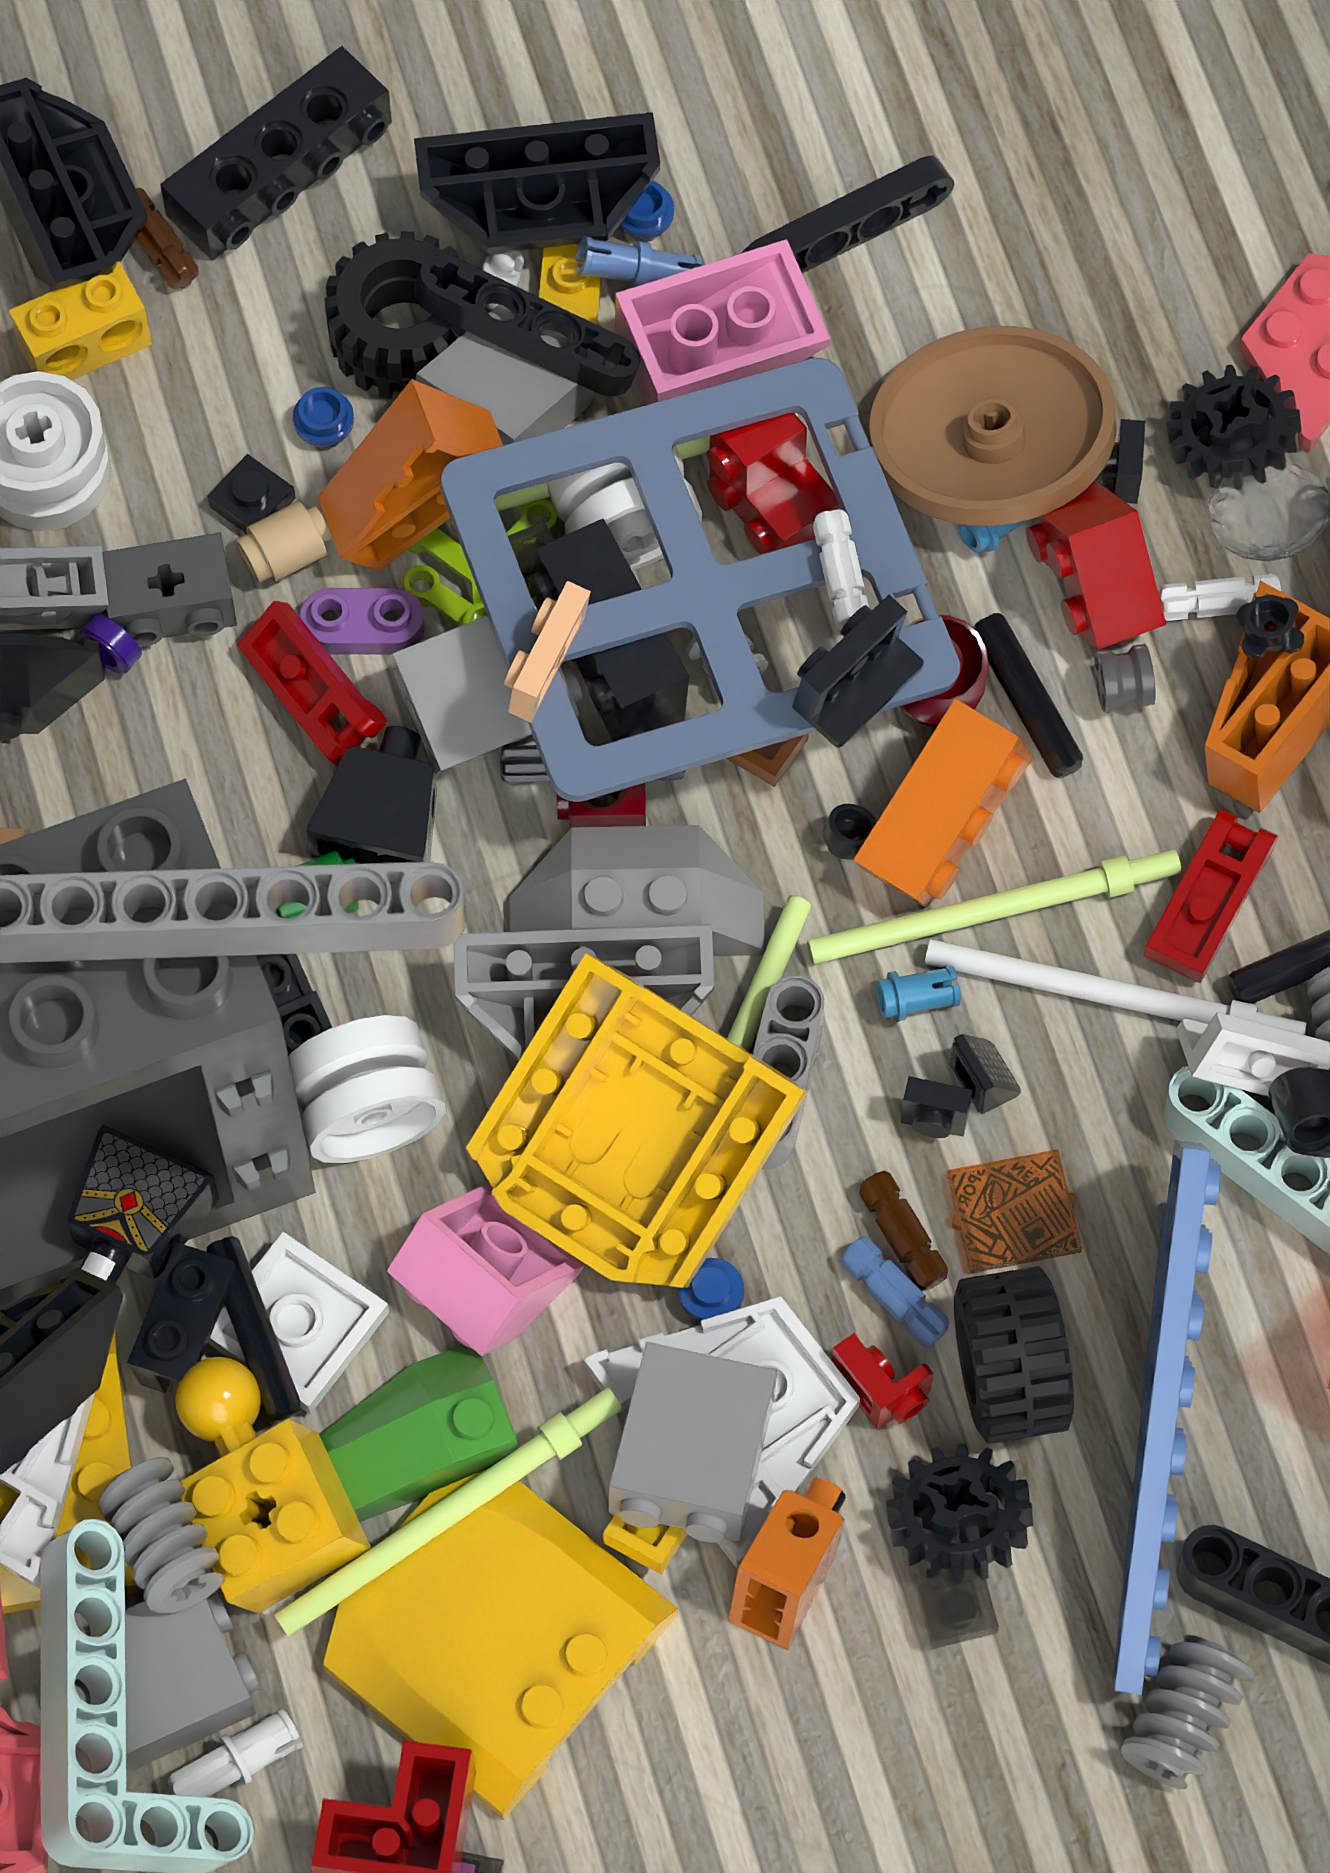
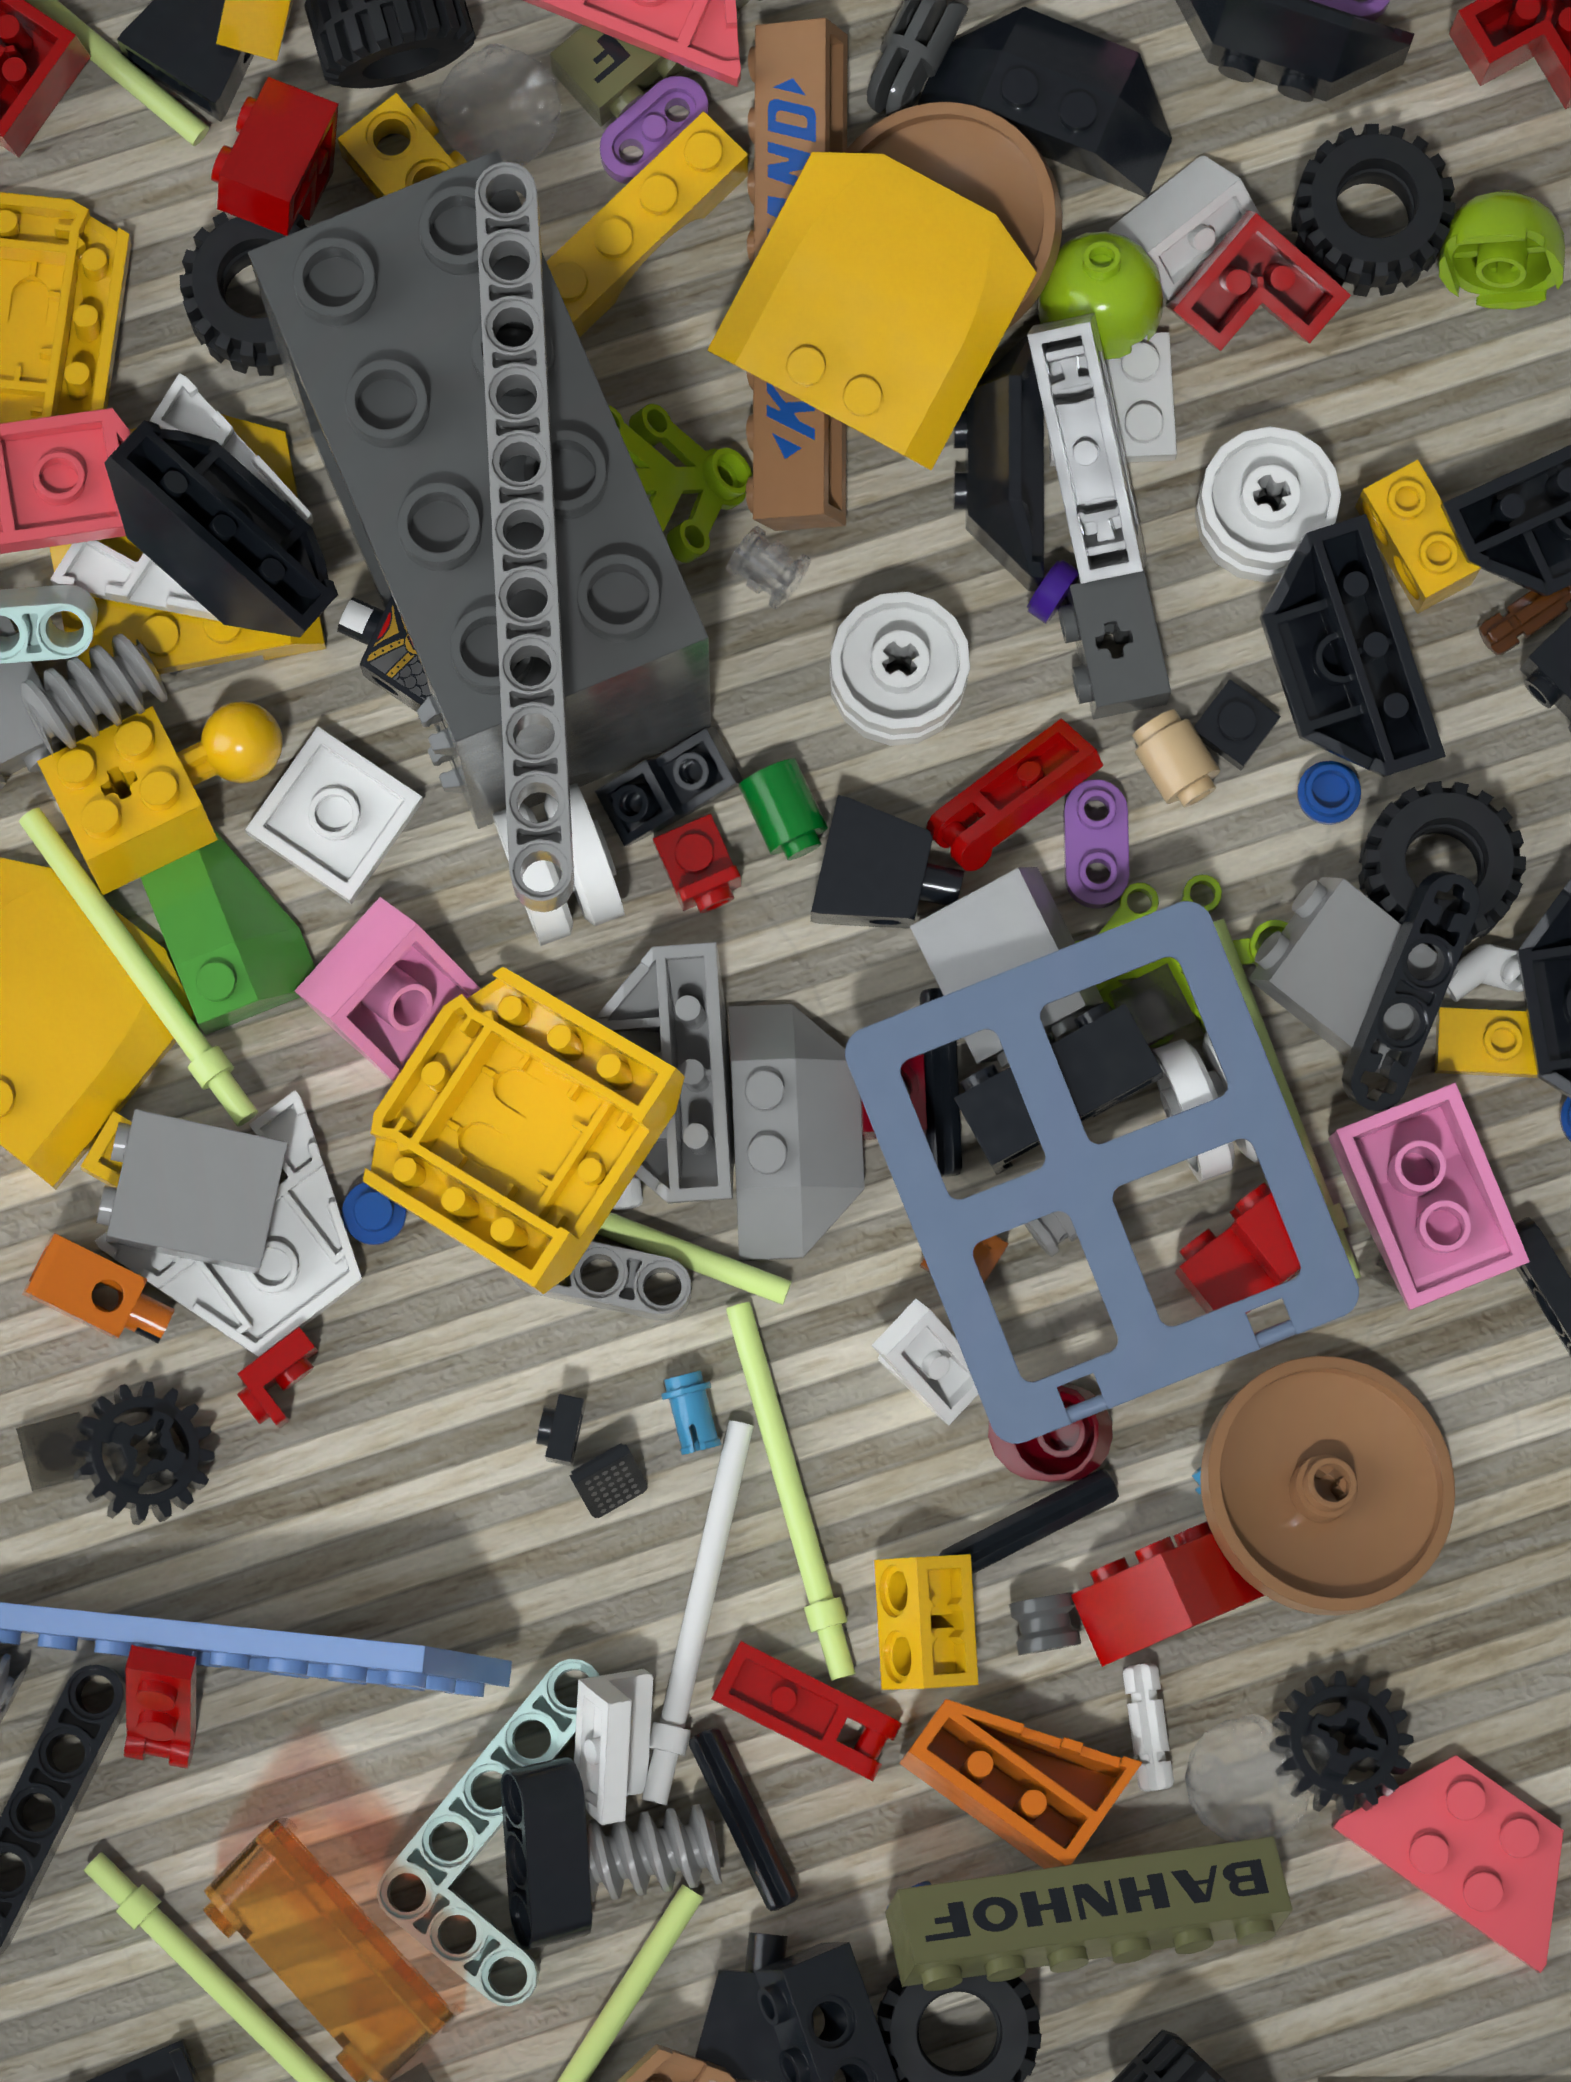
camera: 85 degrees right, 15 degrees up
(181, 1316) = (325, 703): black bracket -> none
(188, 742) = (907, 632): none -> white wheel
(195, 373) = (1348, 654): none -> black wedge
(257, 1335) = (315, 772): black axle -> none
(365, 982) = (698, 865): none -> red bracket
(391, 483) = (1234, 874): orange wedge -> none
(534, 672) = (961, 1001): light nougat plate -> none
(628, 263) = (1513, 1111): medium blue pin -> none
(839, 564) = (1106, 1316): white axle -> none
(845, 824) = (848, 1344): black hinge -> none
(858, 675) = (980, 1337): black bracket -> none
(865, 770) = (927, 1361): none -> white slope
(895, 1291) = (376, 1392): medium blue axle -> none
(903, 1230) = (439, 1400): reddish brown axle -> none
(944, 804) = (890, 1438): orange wedge -> none
(1013, 1355) = (287, 1500): black tyre -> none
(1014, 1211) = (466, 1510): clear orange piece -> none
(1126, 763) = (926, 1622): none -> yellow brick
(1127, 460) = (1298, 1629): black plate -> none
(1225, 1480) = (160, 1705): none -> red plate
(1269, 611) = (1090, 1754): black plate -> none

